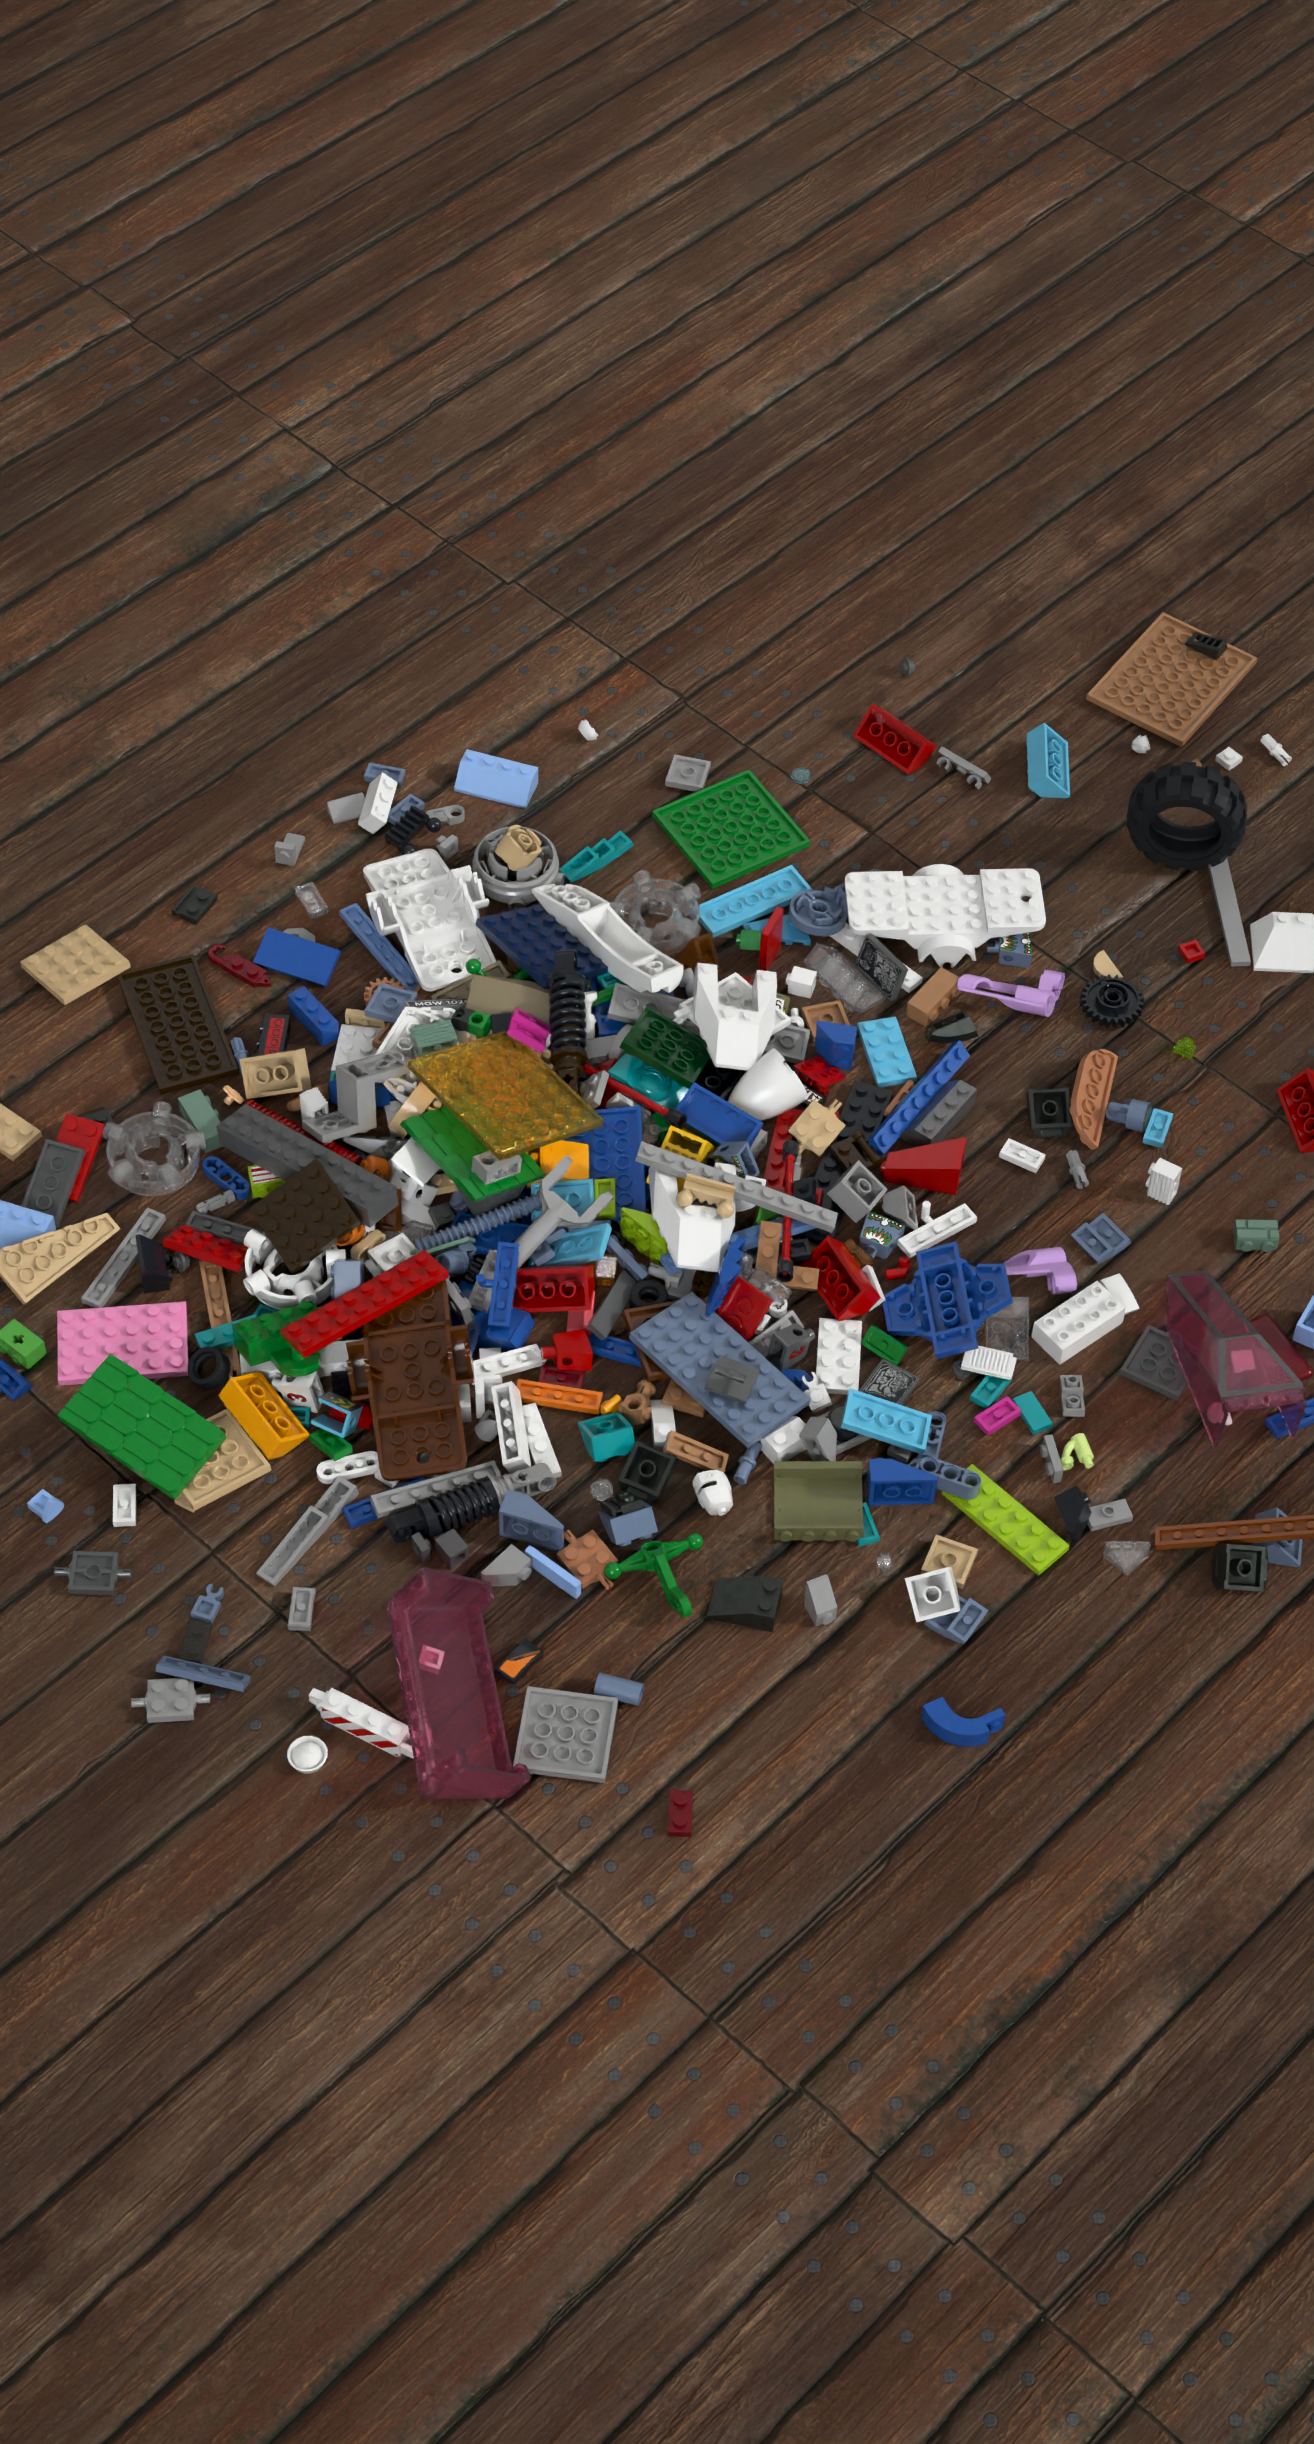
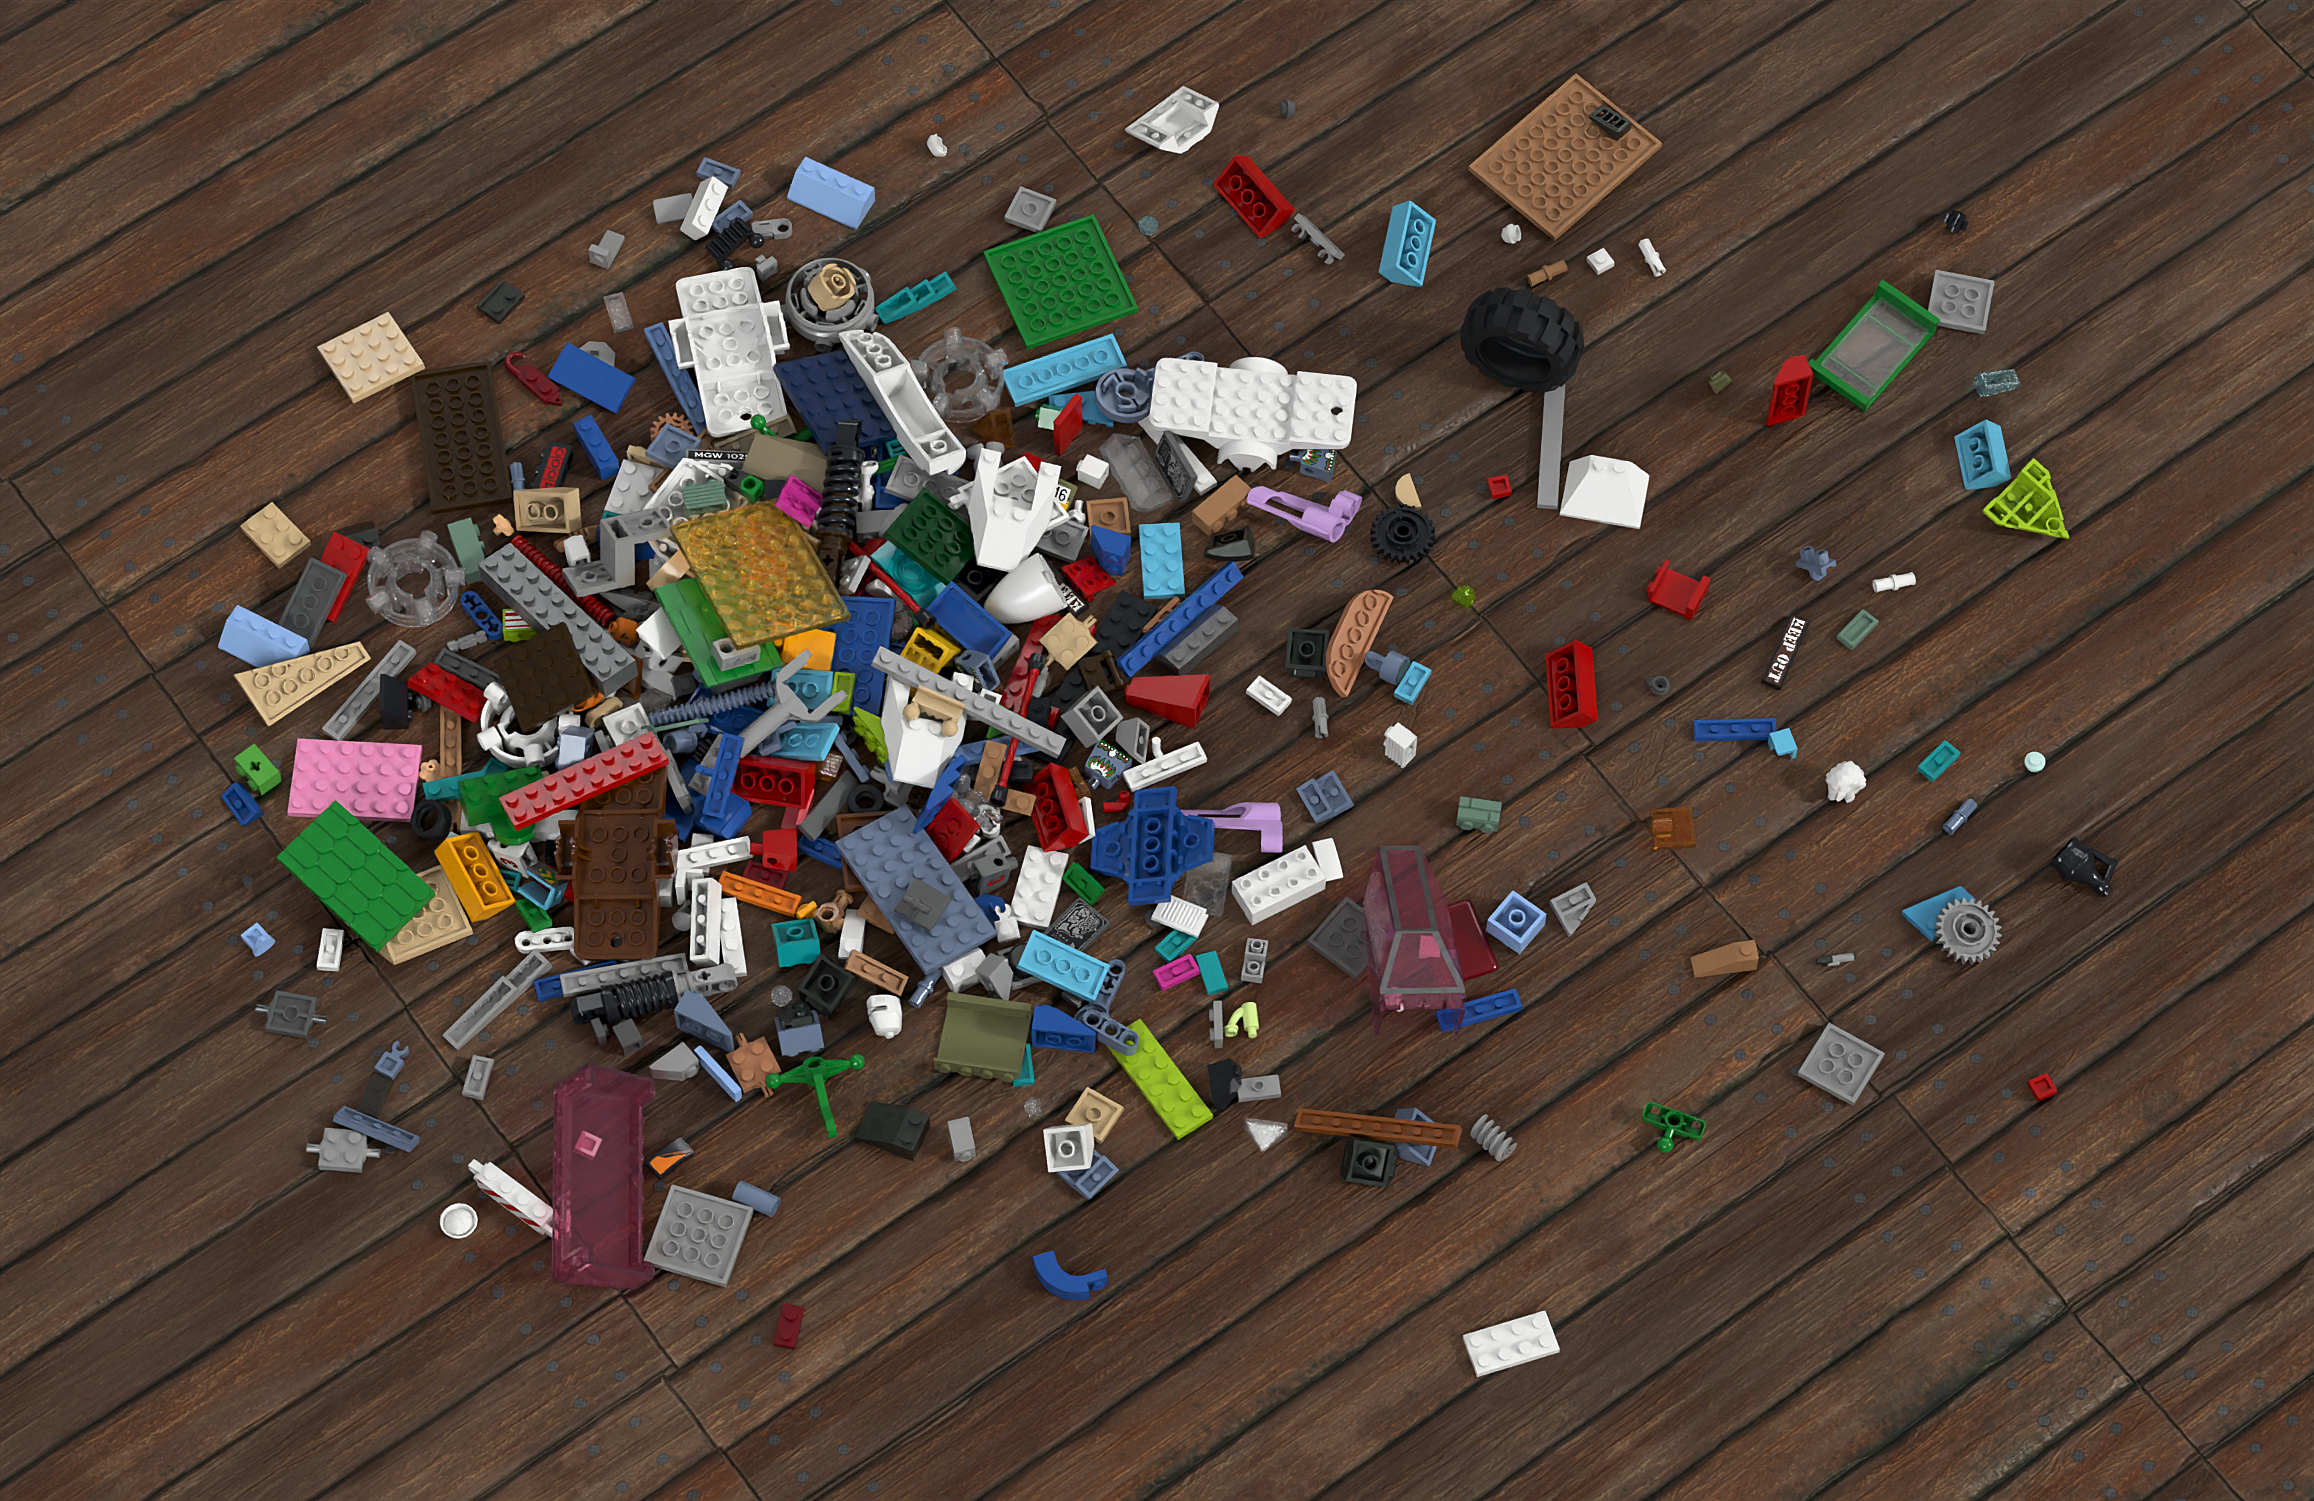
camera: 10 degrees right, 10 degrees up
(198, 1324) = (430, 771): none -> light nougat plant
(808, 687) = (1176, 121): none -> white slope

